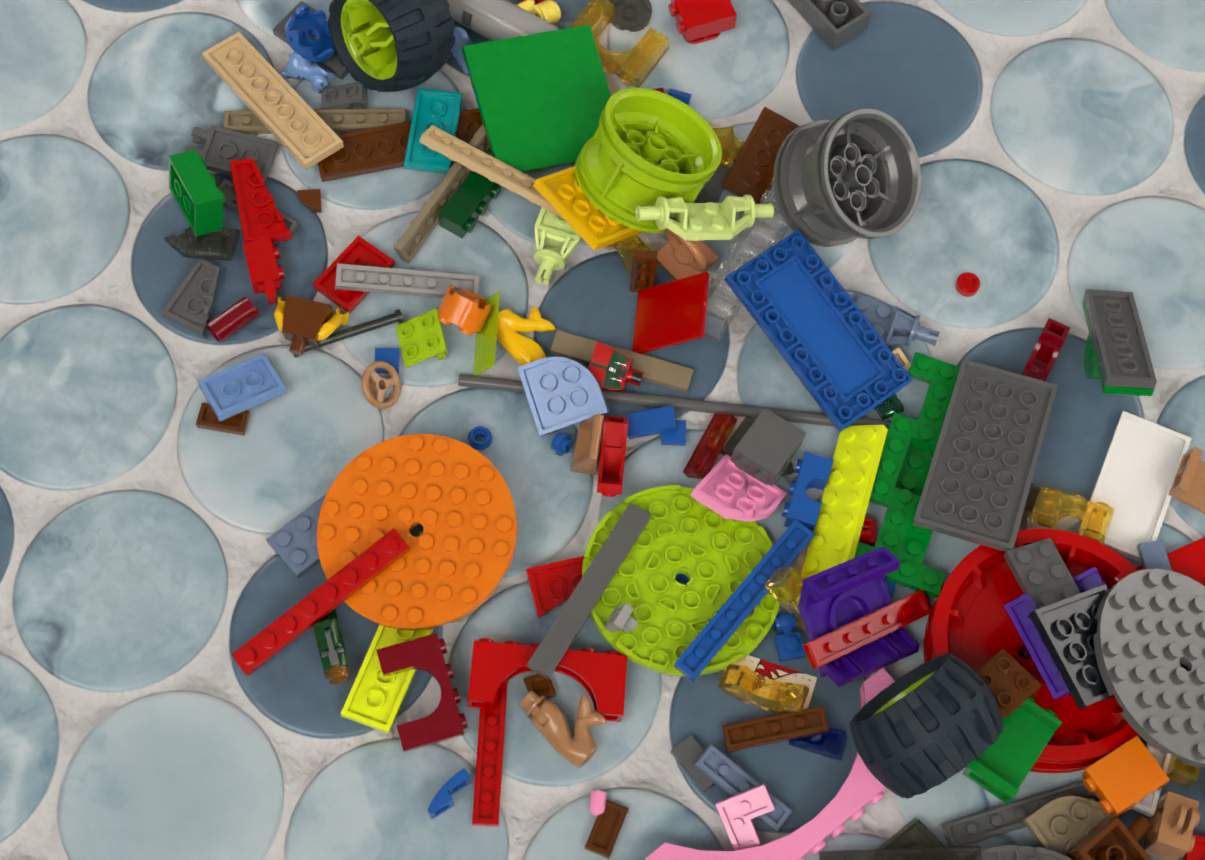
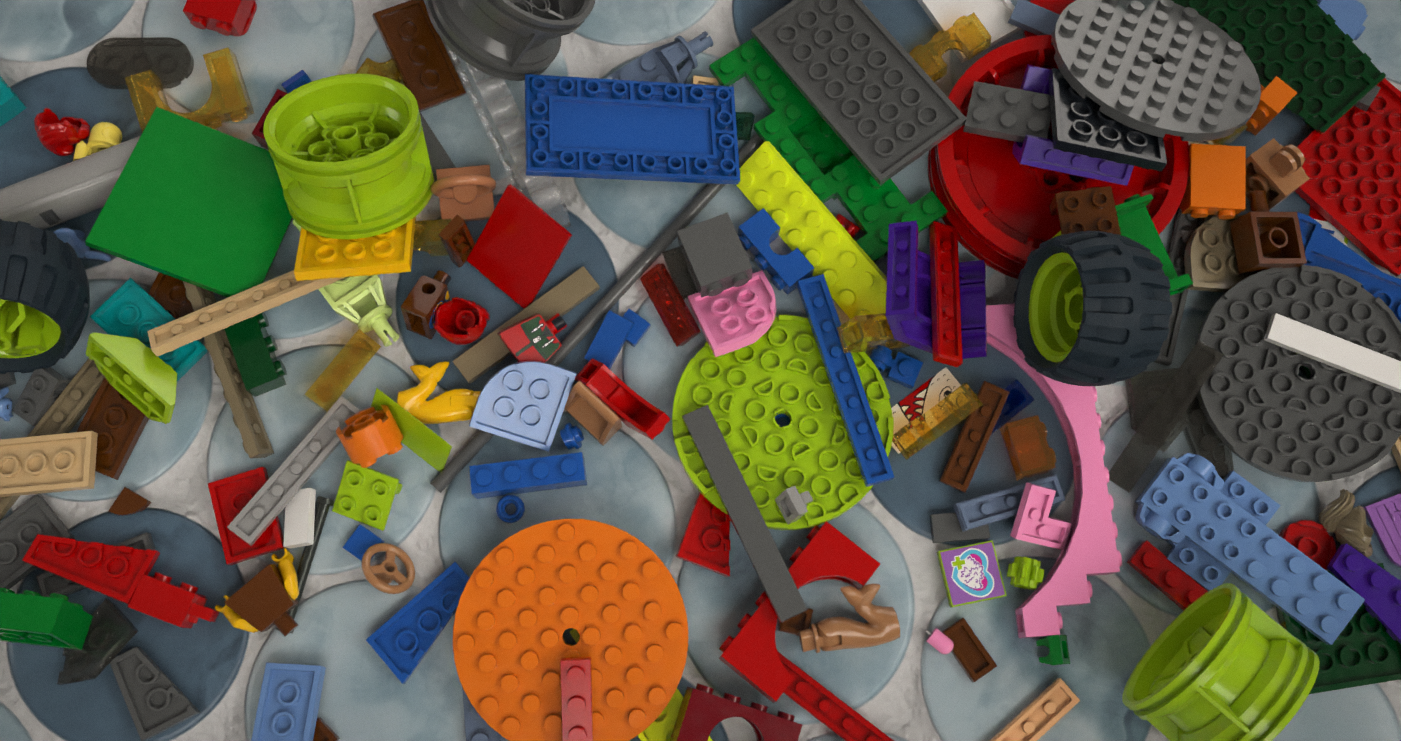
camera: 55 degrees left, 10 degrees up
(232, 319) = (204, 671): dark red pin -> none
(354, 431) = (416, 626): none -> blue wing
(375, 308) = (300, 519): none -> white tile
(399, 138) = (135, 373): none -> lime wedge
(496, 263) = (342, 371): none -> clear yellow brick
(512, 432) = (528, 475): none -> blue brick
(584, 285) = (423, 302): none -> reddish brown torso
(589, 314) = (461, 321): none -> red hair
(667, 795) = (971, 574): none -> tile
(695, 832) = (1025, 573): none -> lime gear
(704, 220) = (454, 147): yellowish green plate -> none
(797, 774) = (1028, 447): none -> clear orange brick

